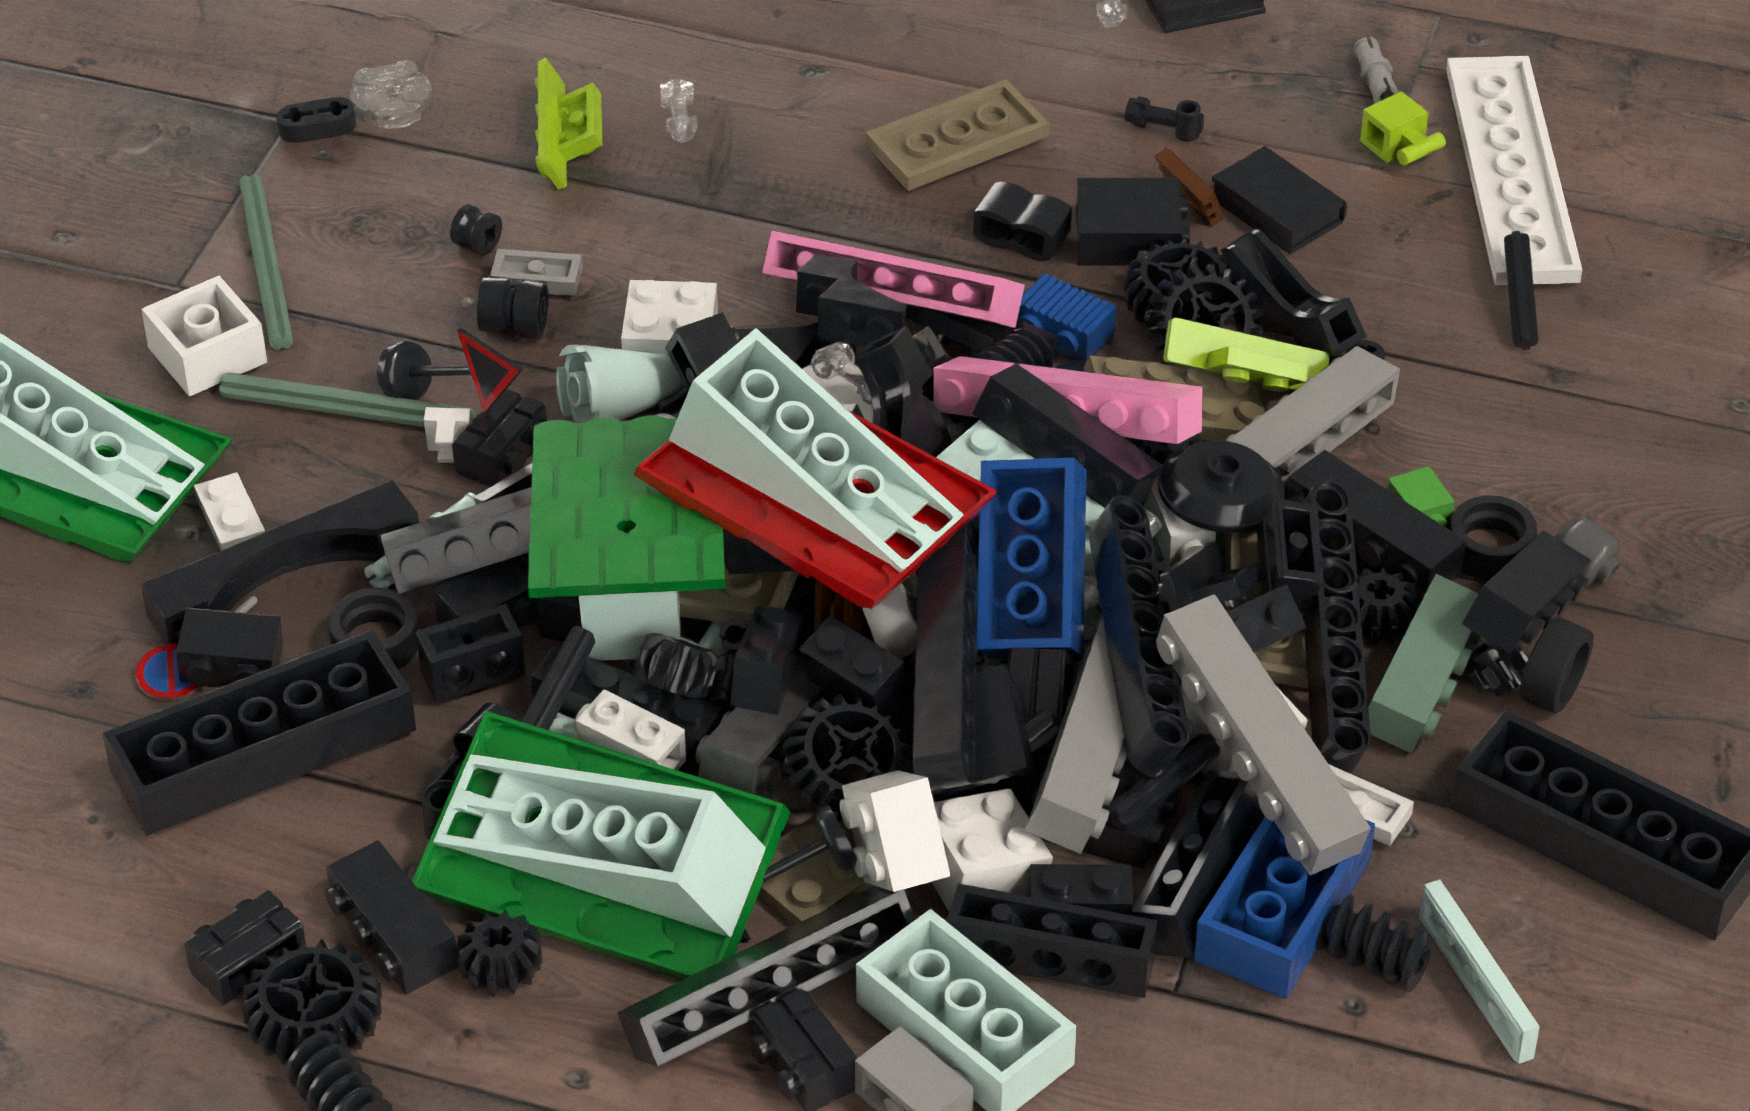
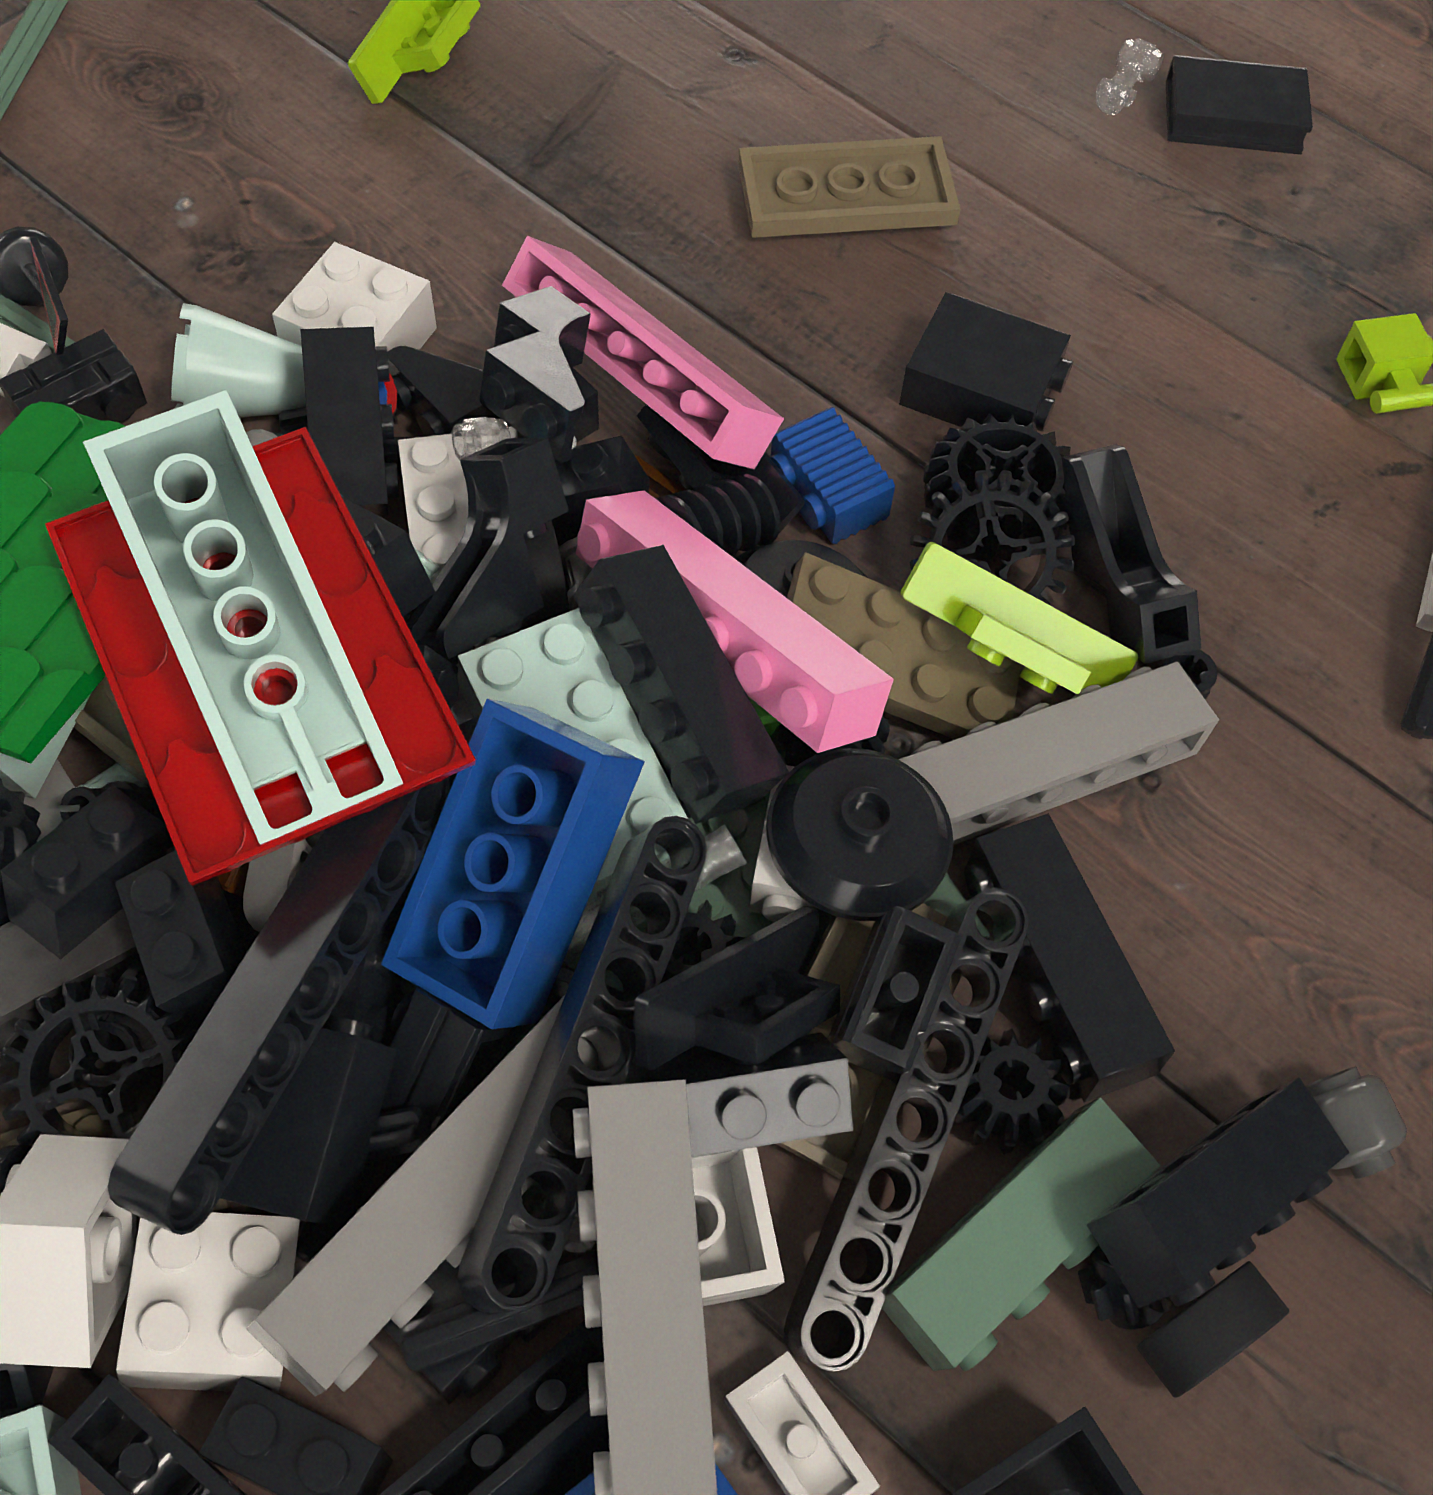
camera: 20 degrees right, 15 degrees up
(476, 229) = (237, 119): black wheel -> none
(517, 306) = (203, 227): black wheel -> none
(558, 269) = (267, 194): light grey plate -> none
(677, 96) = (563, 35): clear bar -> none
(1022, 221) = (856, 324): black brick -> none
(1186, 118) = (1129, 255): black bar -> none
(1200, 195) = (1085, 349): reddish brown tile -> none
(1278, 199) = (1189, 405): black piece -> none
(1375, 69) = (1399, 272): light grey pin -> none
(1424, 492) = (1153, 939): bright green brick -> none
(1492, 513) = (1261, 1004): black tyre -> none

